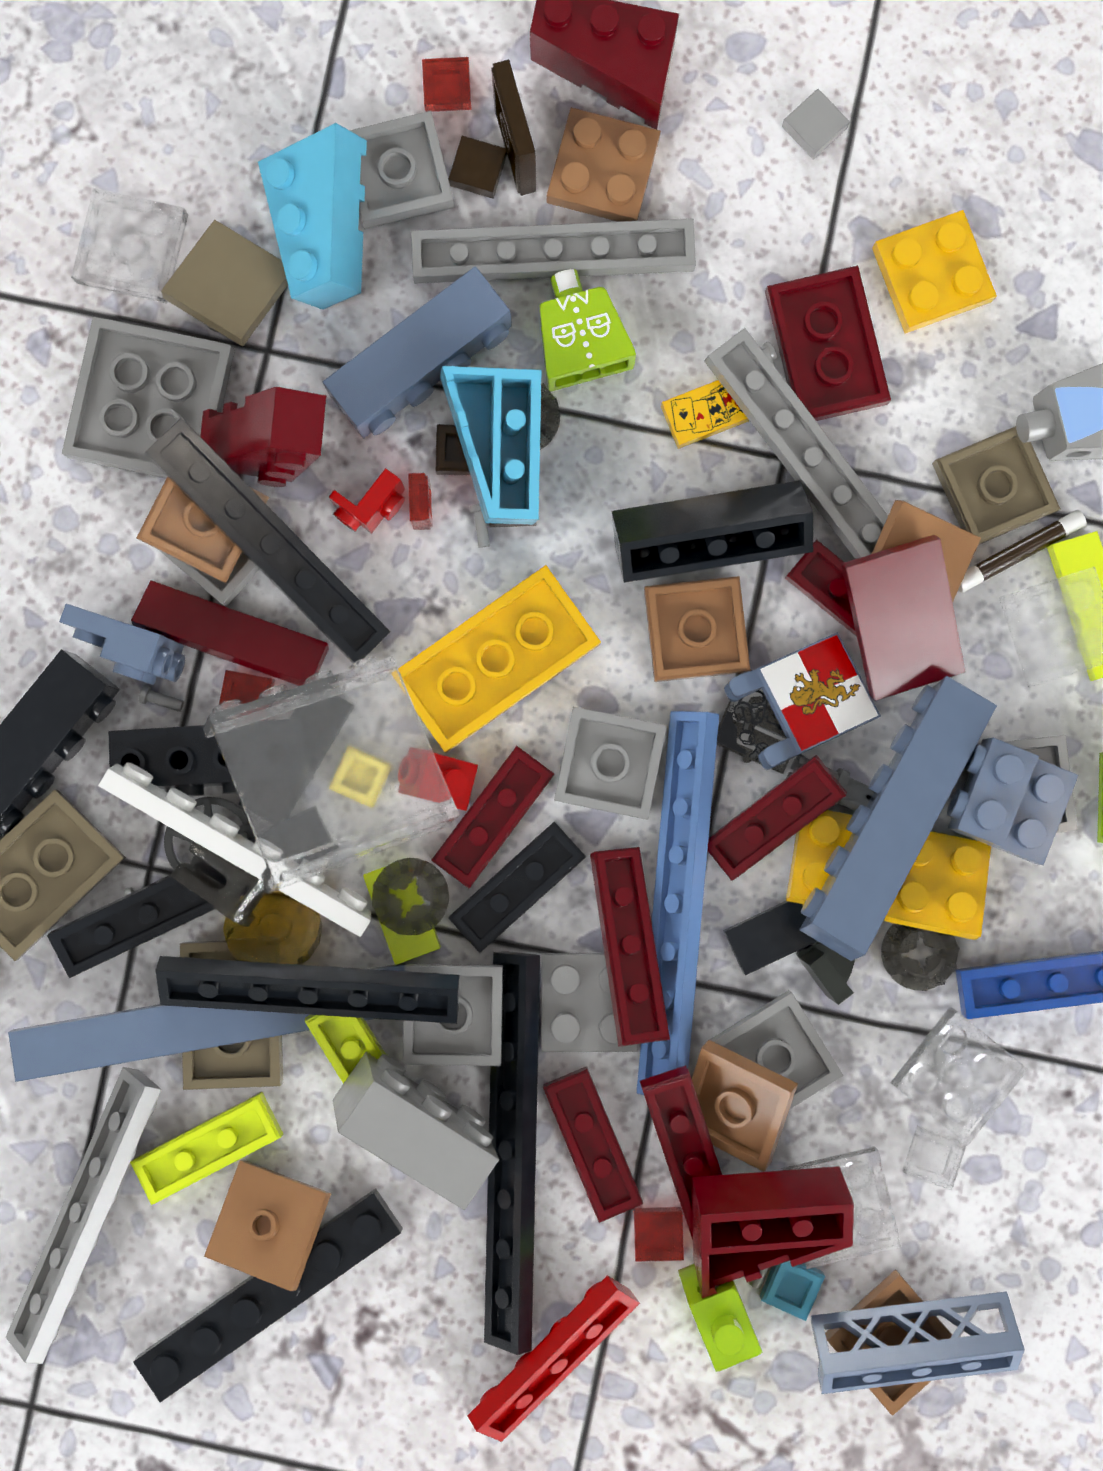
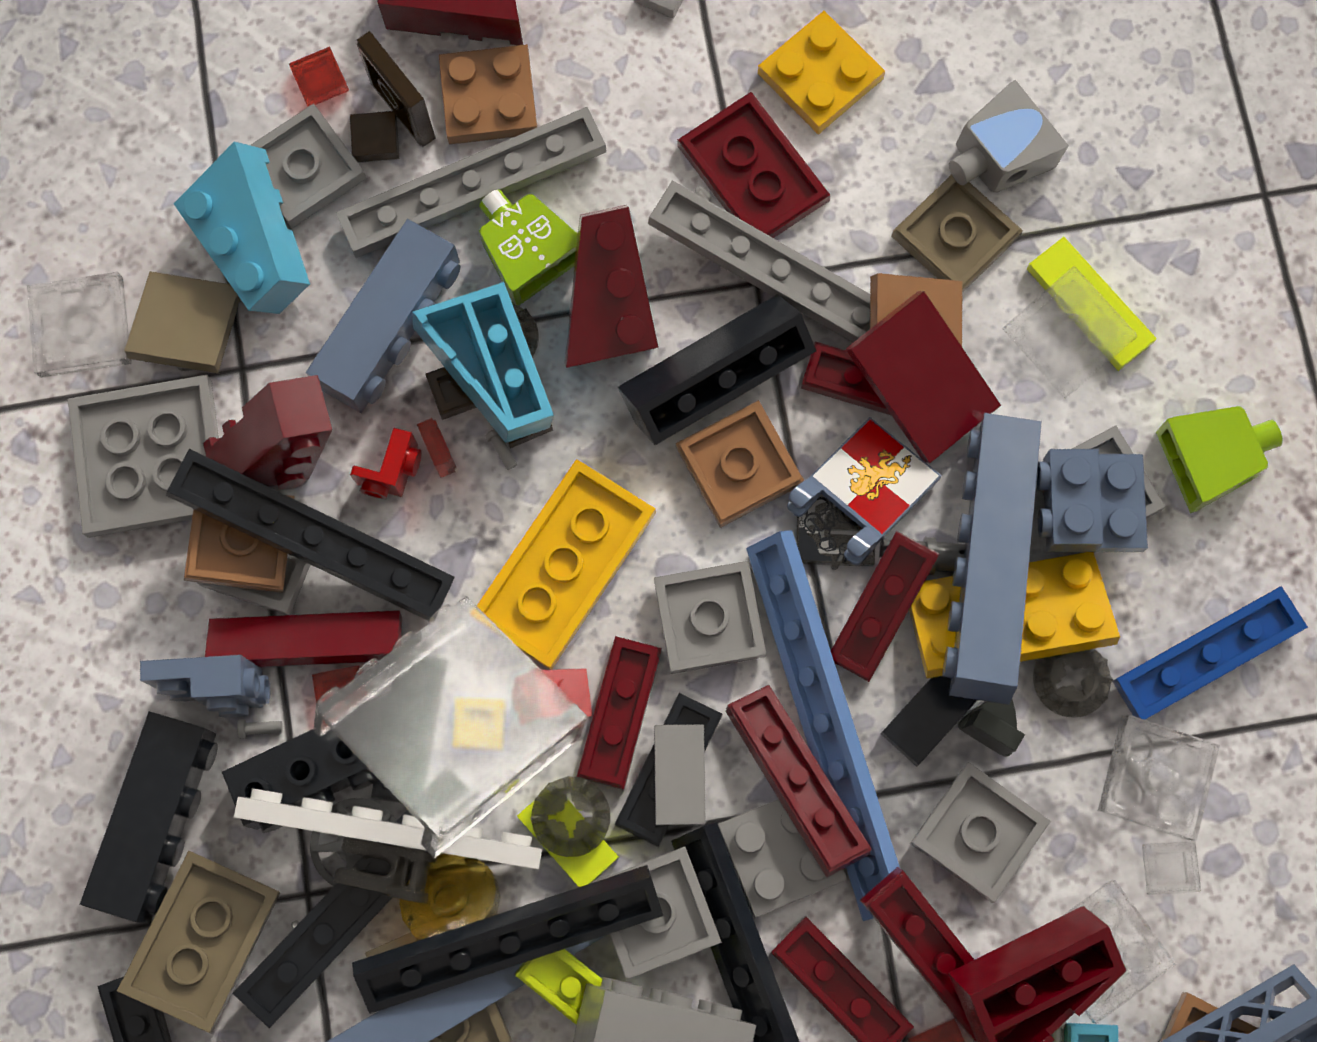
camera: 20 degrees left, 10 degrees down
(524, 898) = (679, 775): none -> light grey tile
(639, 417) = (609, 293): none -> dark red wedge
(701, 414) = (669, 269): yellow tile -> none
(742, 1104) = (966, 884): medium nougat plate -> none
(1022, 549) = (1004, 279): dark brown bar -> none

